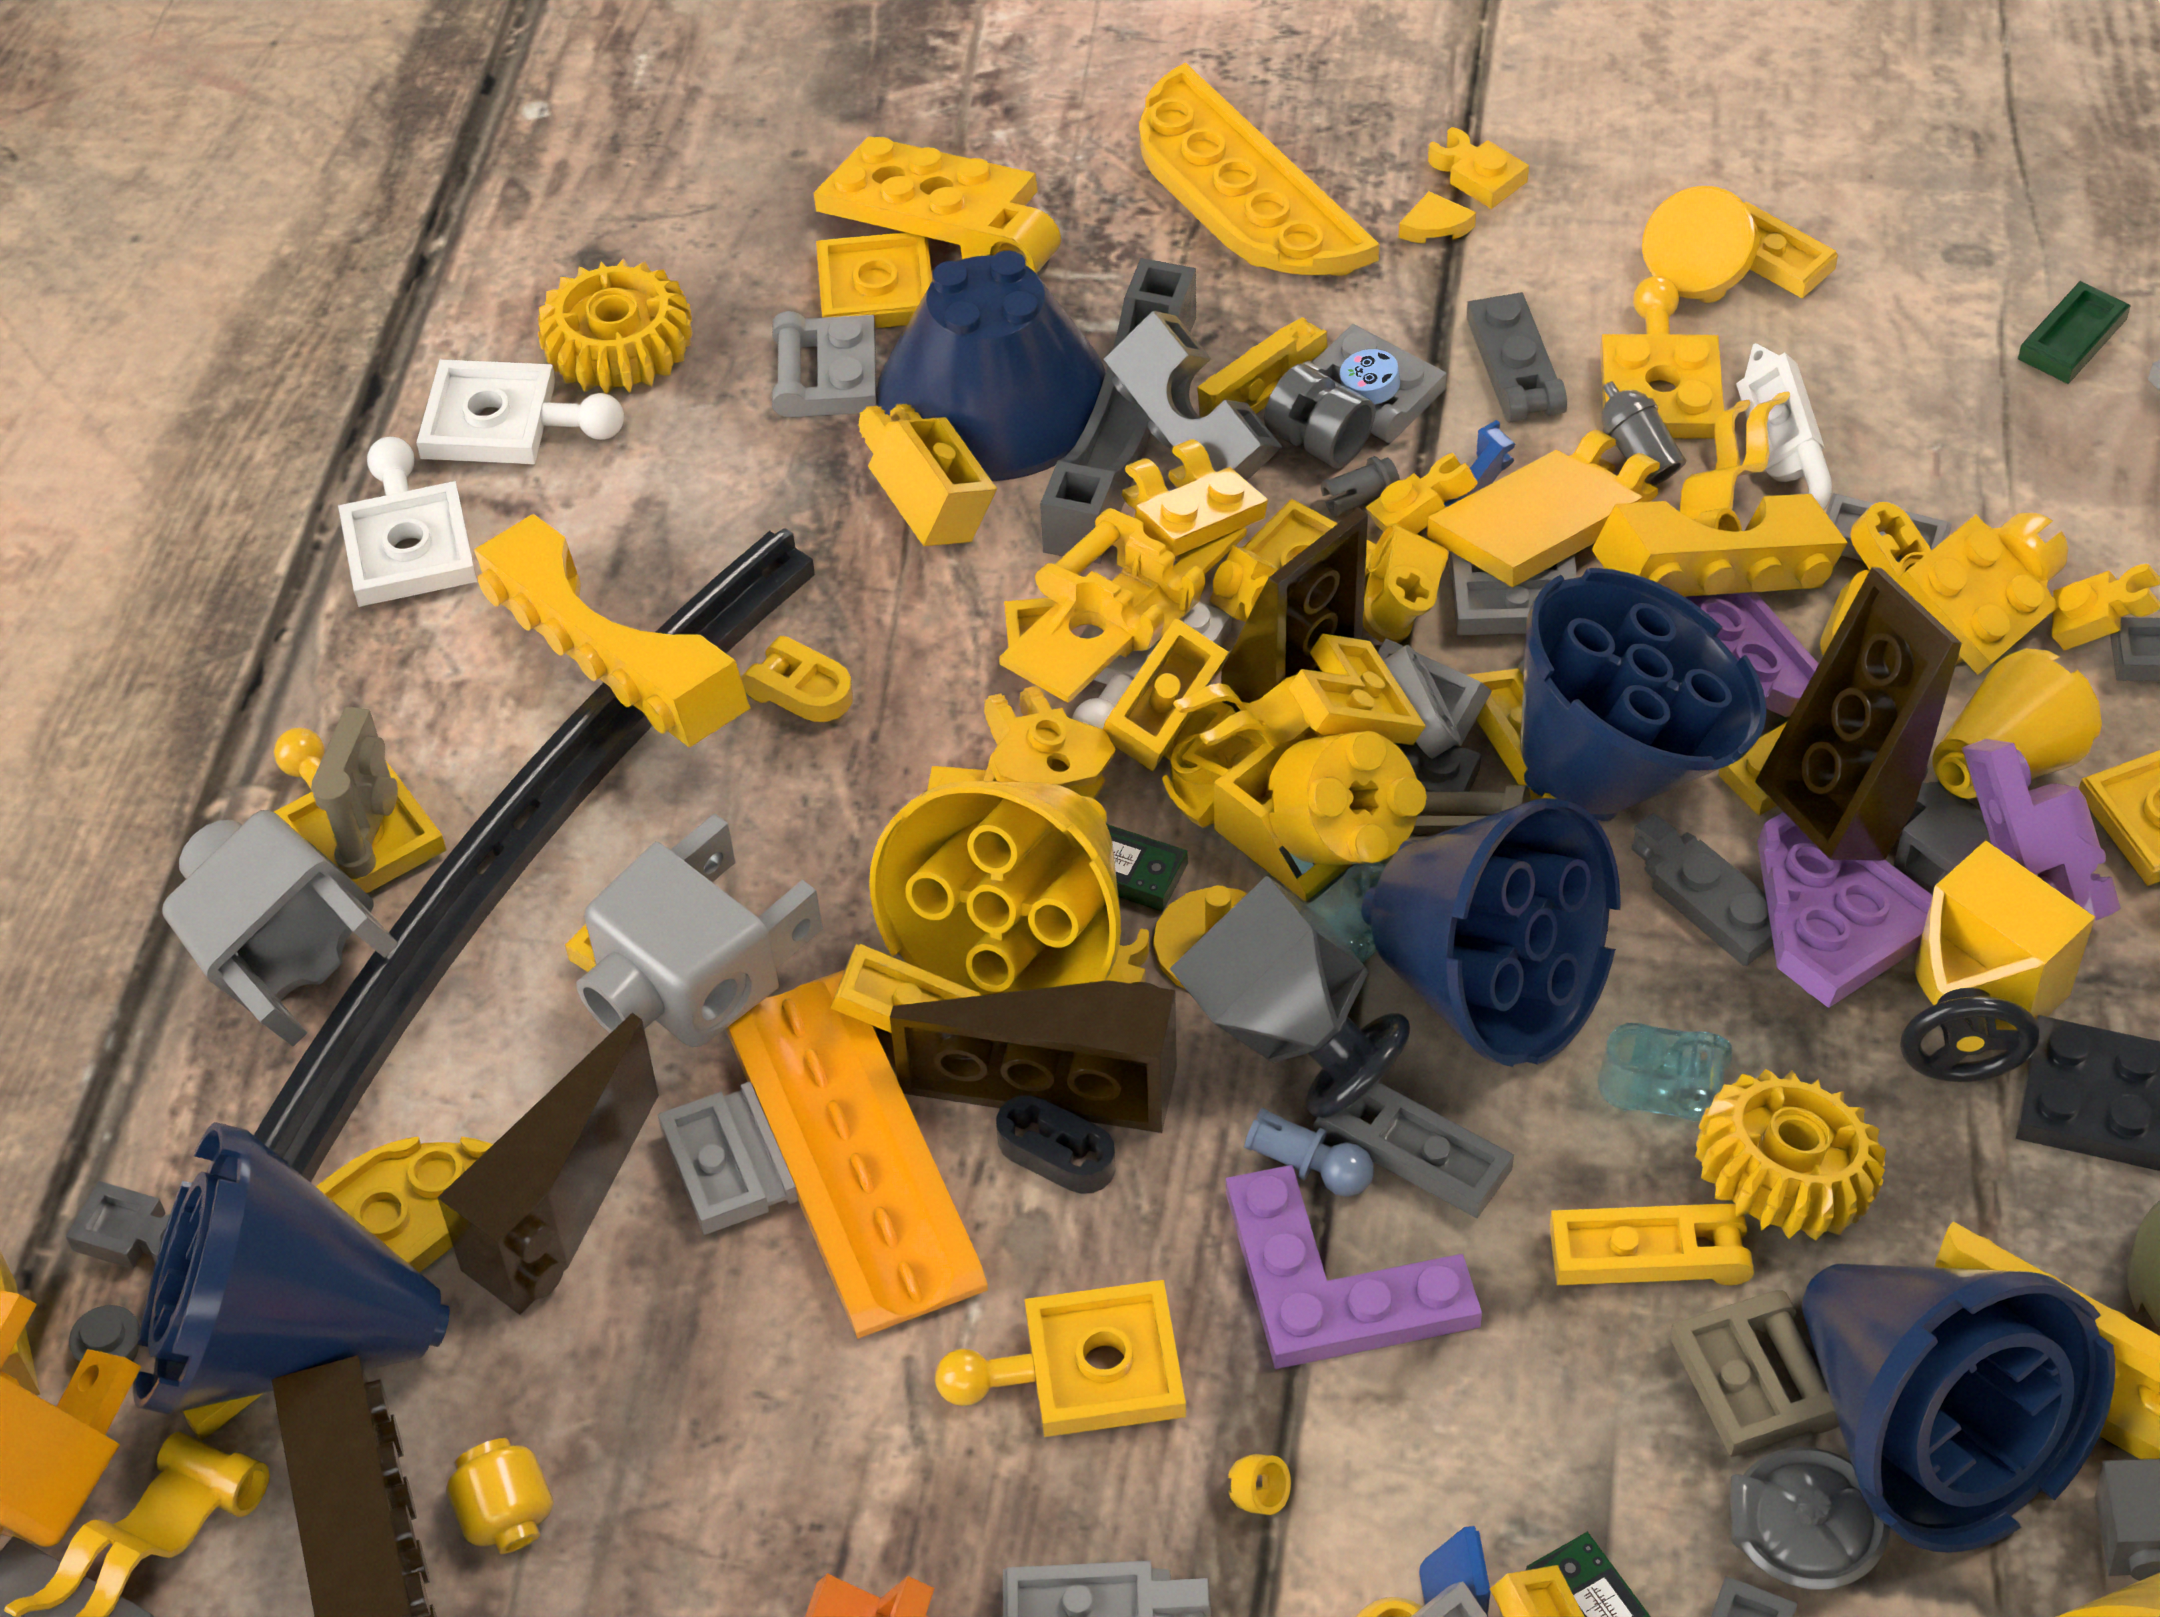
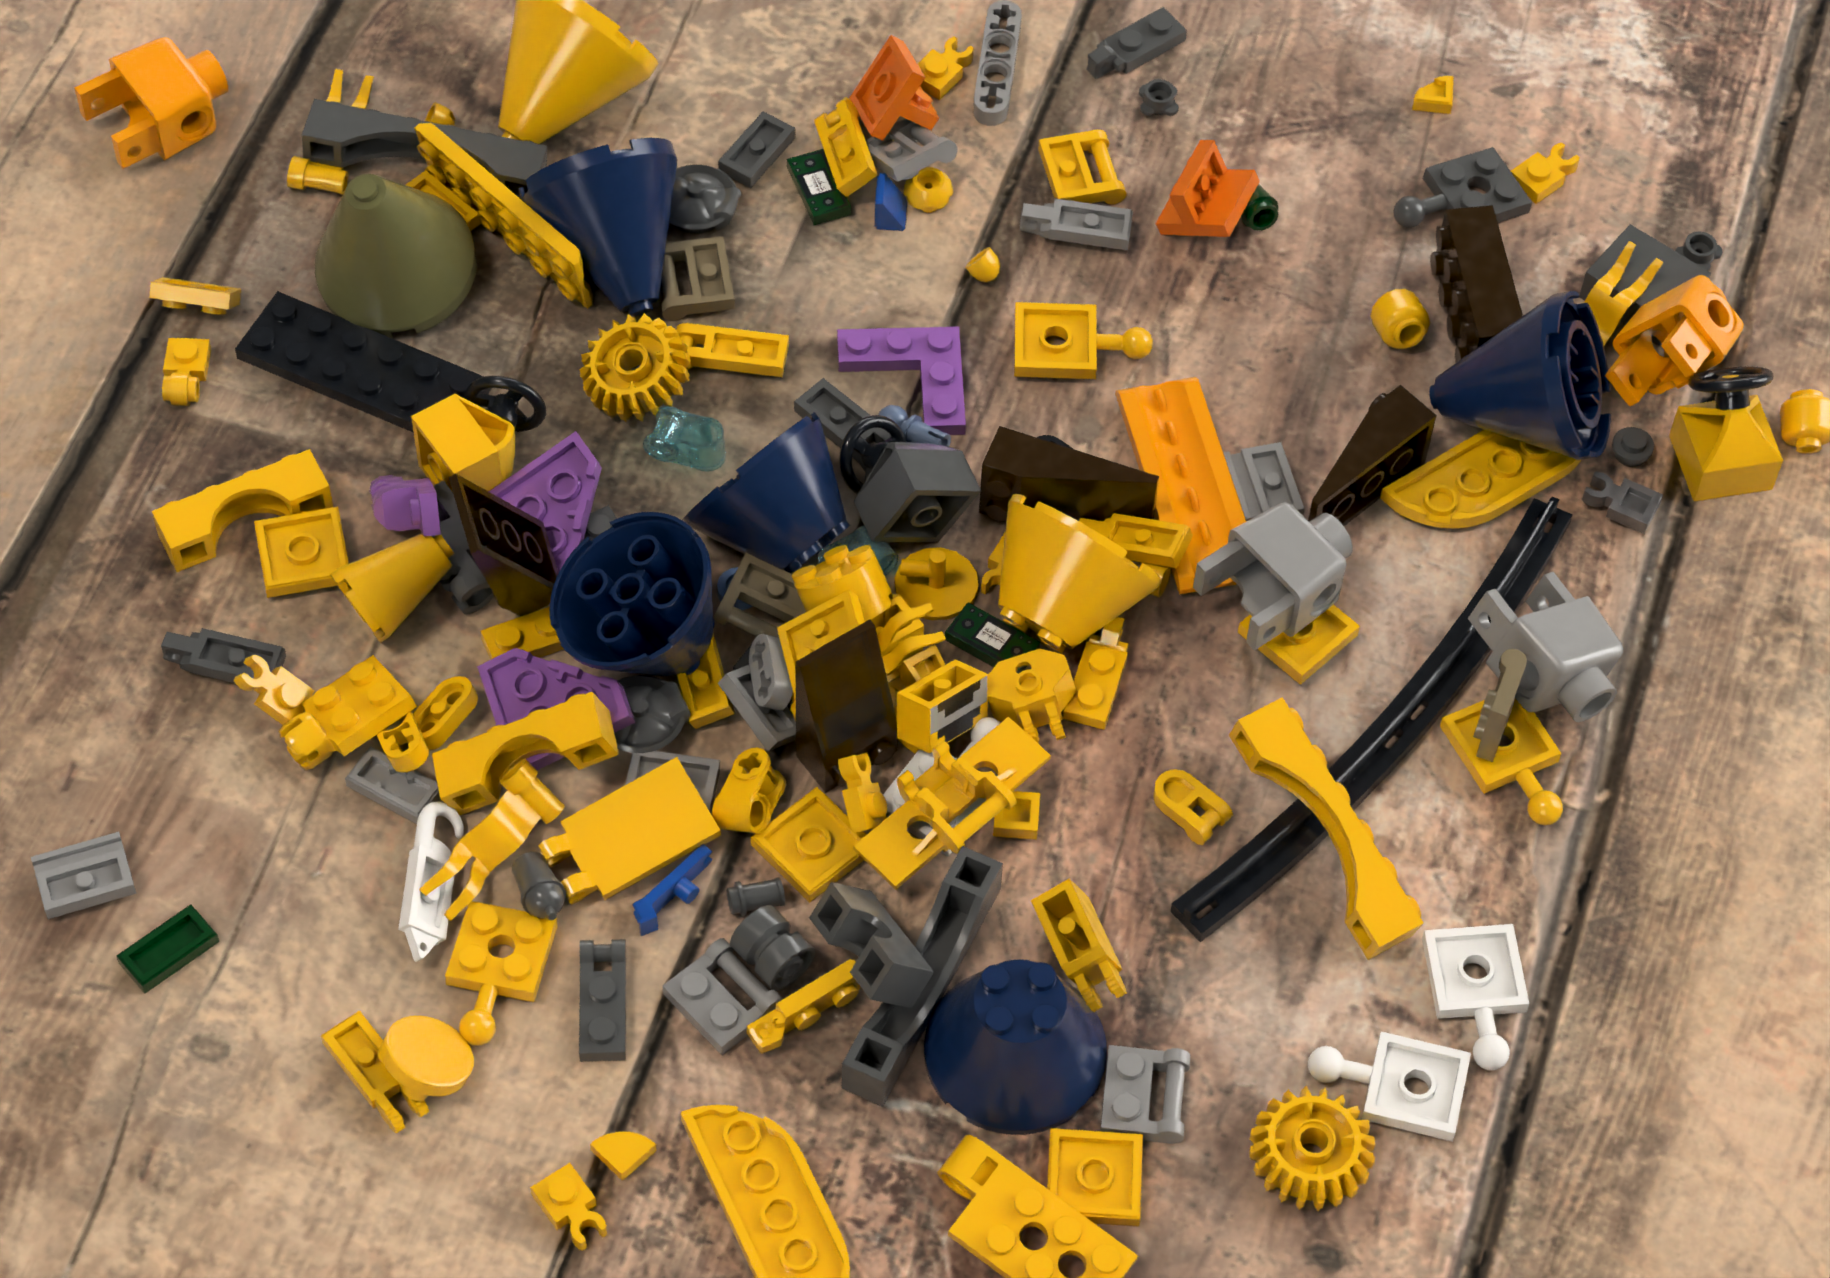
camera: 175 degrees left, 5 degrees up
(1202, 505) = (886, 849): yellow plate -> none
(1371, 374) = (726, 968): light blue tile -> none
(1415, 499) = (723, 860): yellow plate -> none

